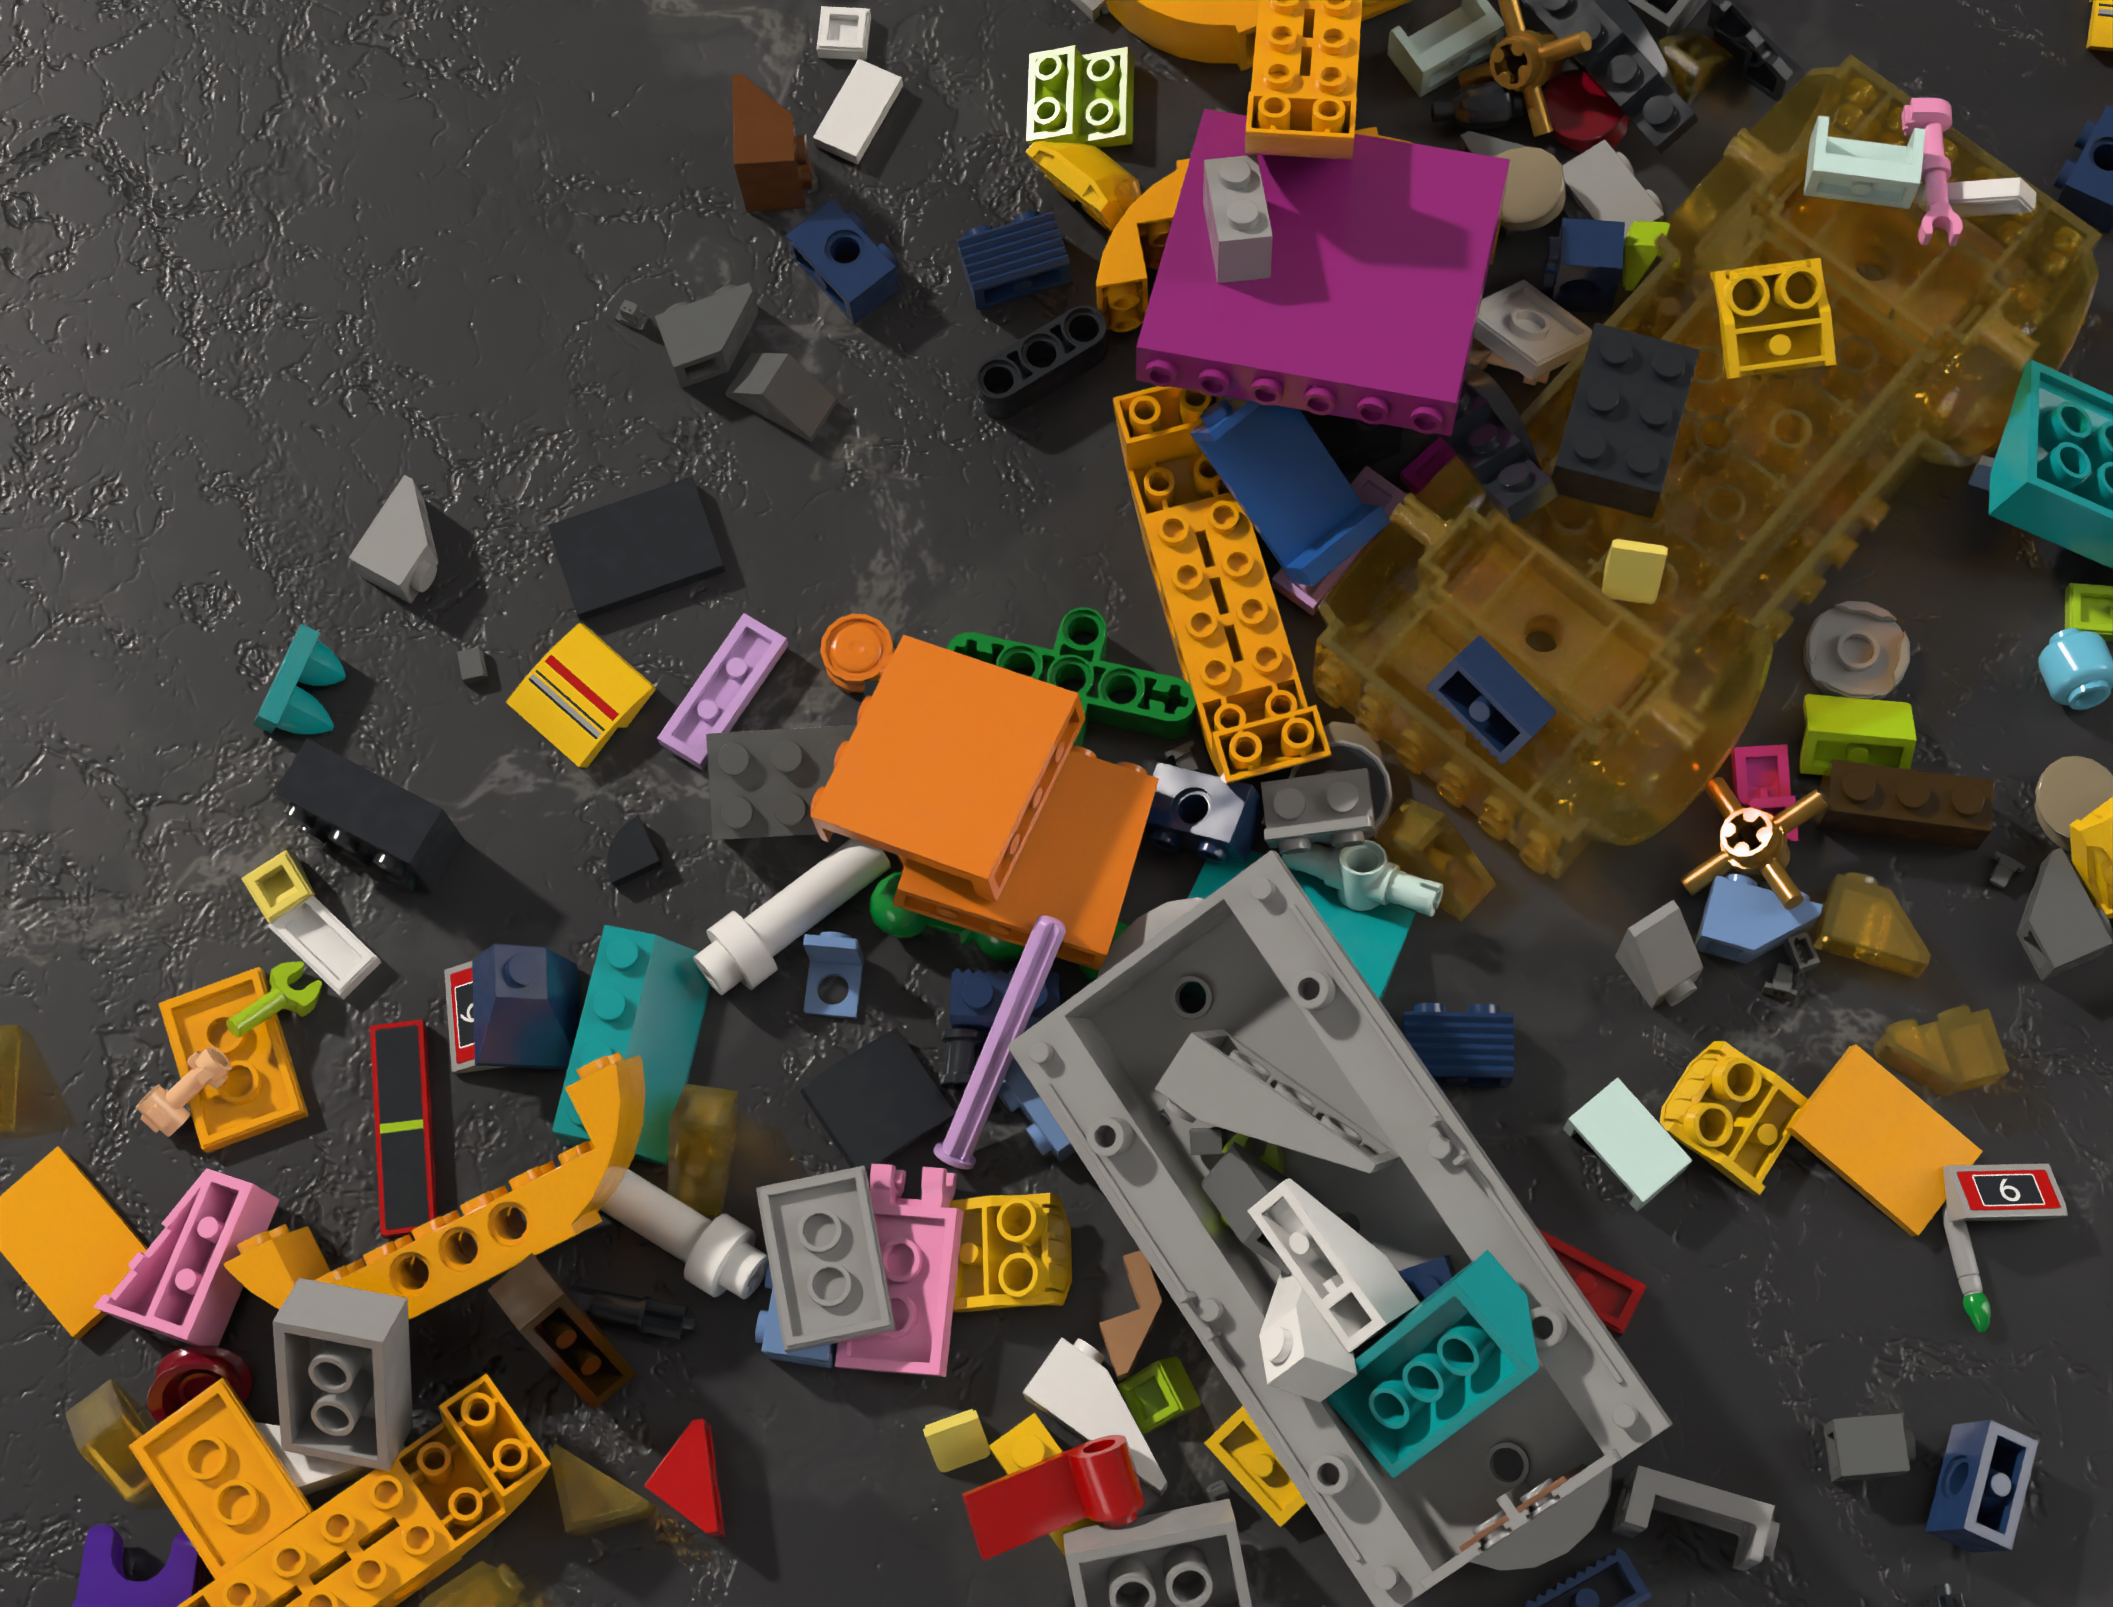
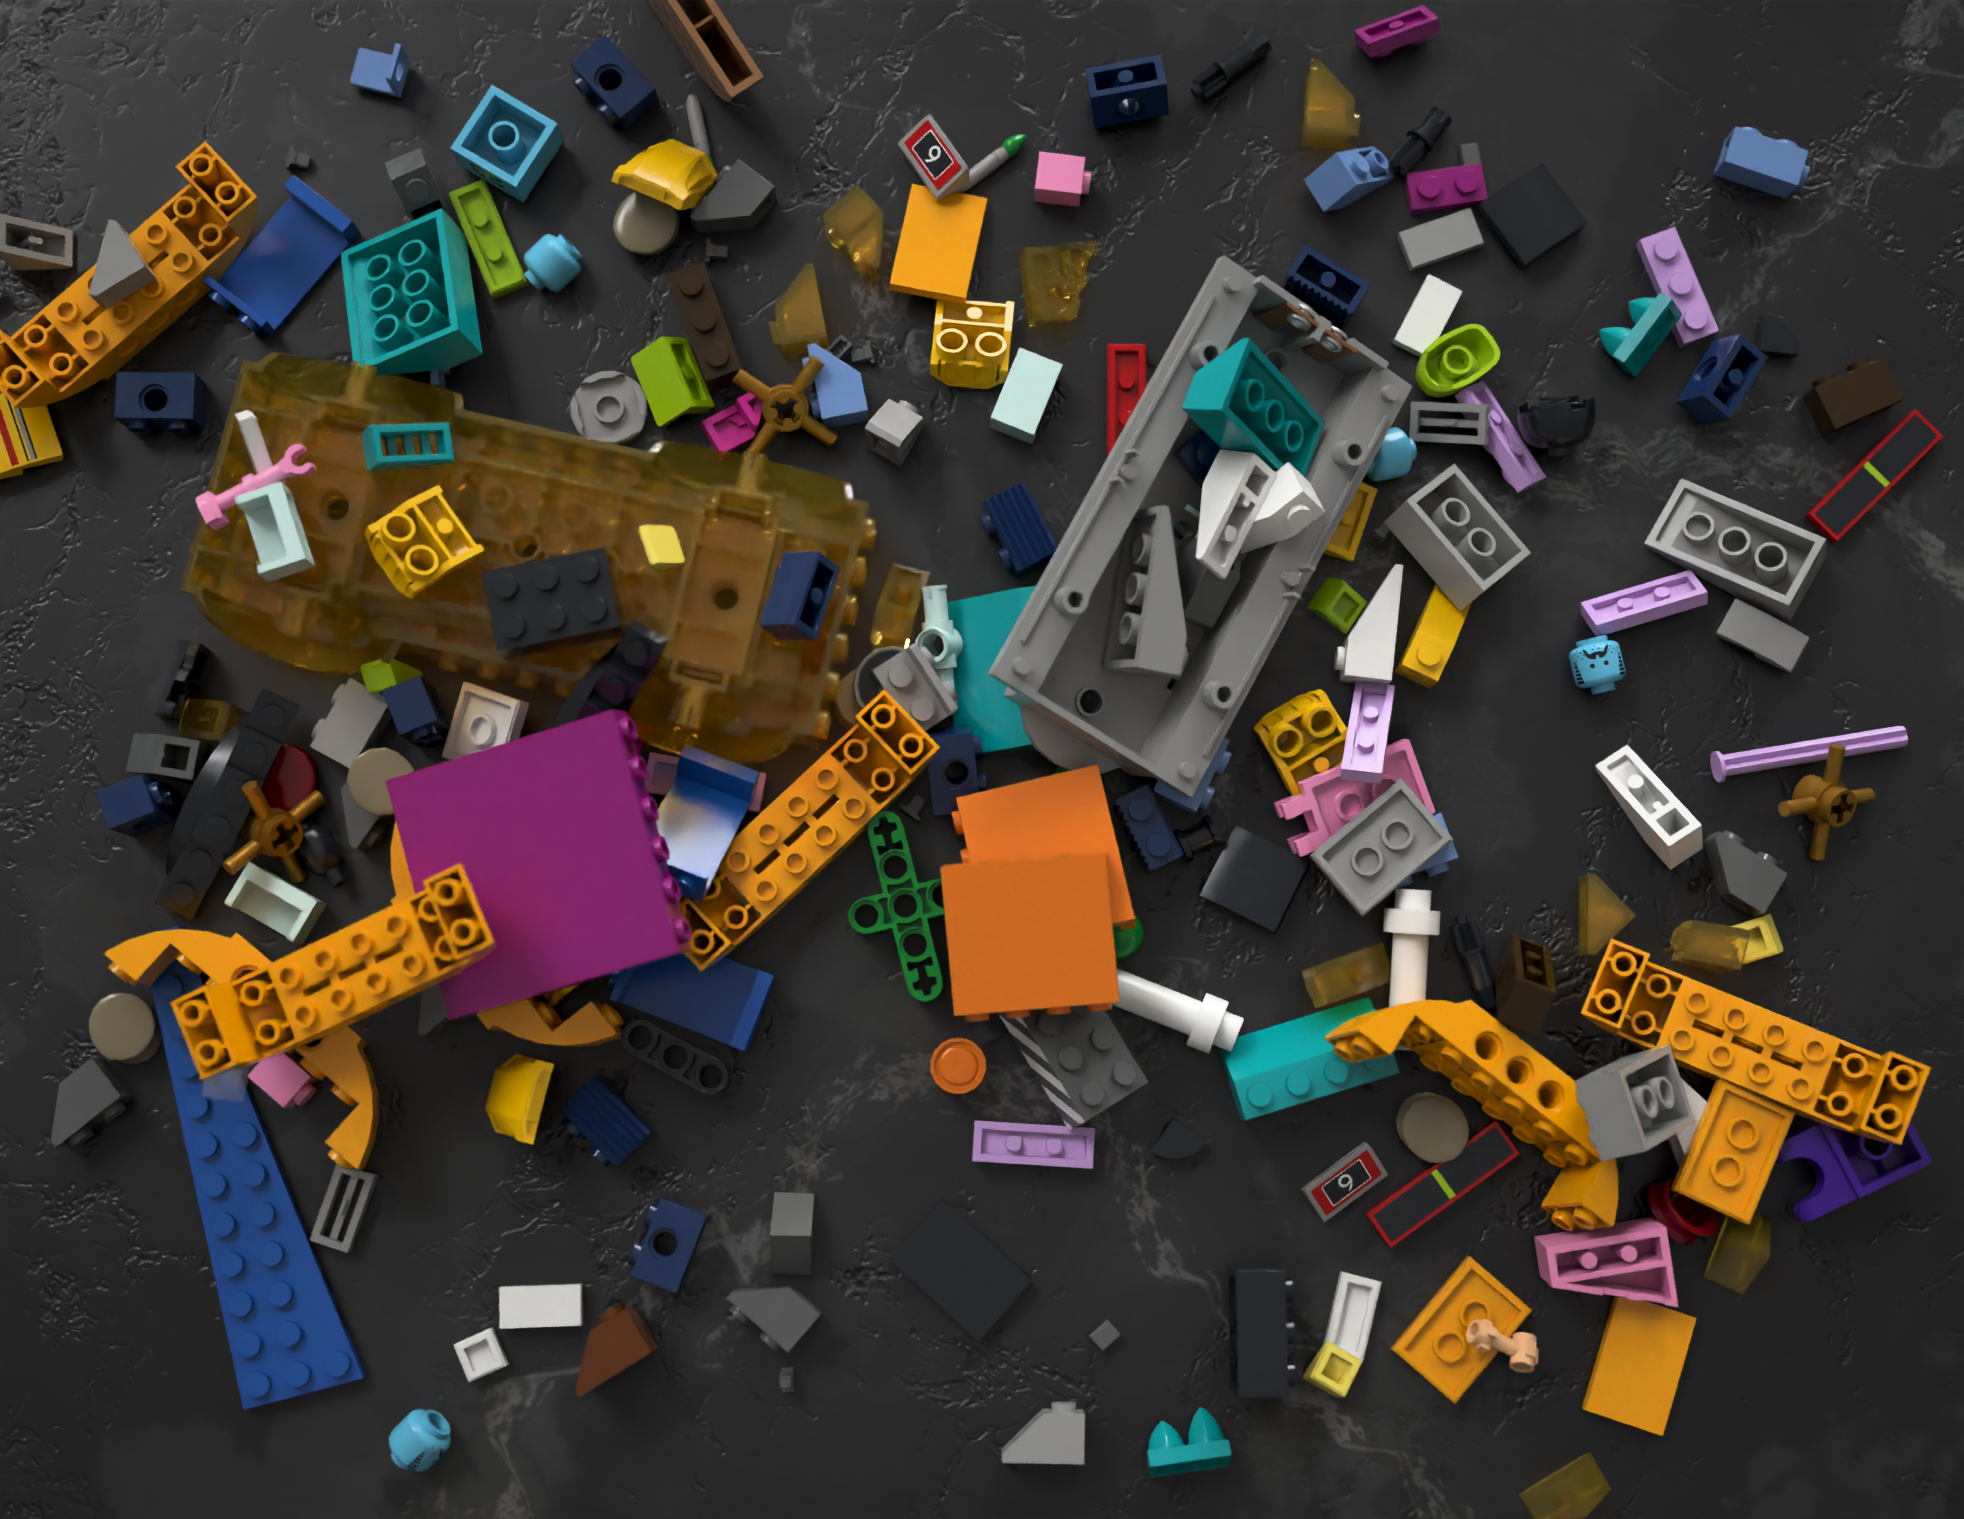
camera: 130 degrees left, 10 degrees up
(278, 998) = (1408, 1320): lime bar -> none
(472, 1151) = (1432, 1127): none -> dark tan piece
(524, 1007) = (1327, 1143): dark blue slope -> none
(581, 695) = (1087, 1242): yellow slope -> none
(690, 1479) = (1559, 861): red slope -> none
(833, 956) = (1174, 962): medium blue bracket -> none
(957, 1440) = (1436, 712): light yellow slope -> none
(973, 1324) = (1368, 732): none -> lavender plate
(995, 1056) = (1186, 808): lavender axle -> none
(1077, 440) = (717, 1002): none -> blue panel
(1080, 1483) = (1422, 608): red door -> none
(1081, 97) = (450, 1146): lime slope -> none
(1128, 1333) = (1311, 638): medium nougat slope -> none
(1237, 218) = (542, 934): light grey brick -> none
(1314, 1564) = (1393, 457): none -> medium azure head
(1651, 1489) = (1229, 208): light grey panel -> none
(1766, 1266) = (1054, 280): none -> clear yellow slope
(1869, 1447) = (1137, 168): dark grey brick -> none
(1899, 1340) = (1061, 179): none -> bright pink brick
(1911, 310) = (377, 462): none -> teal slope

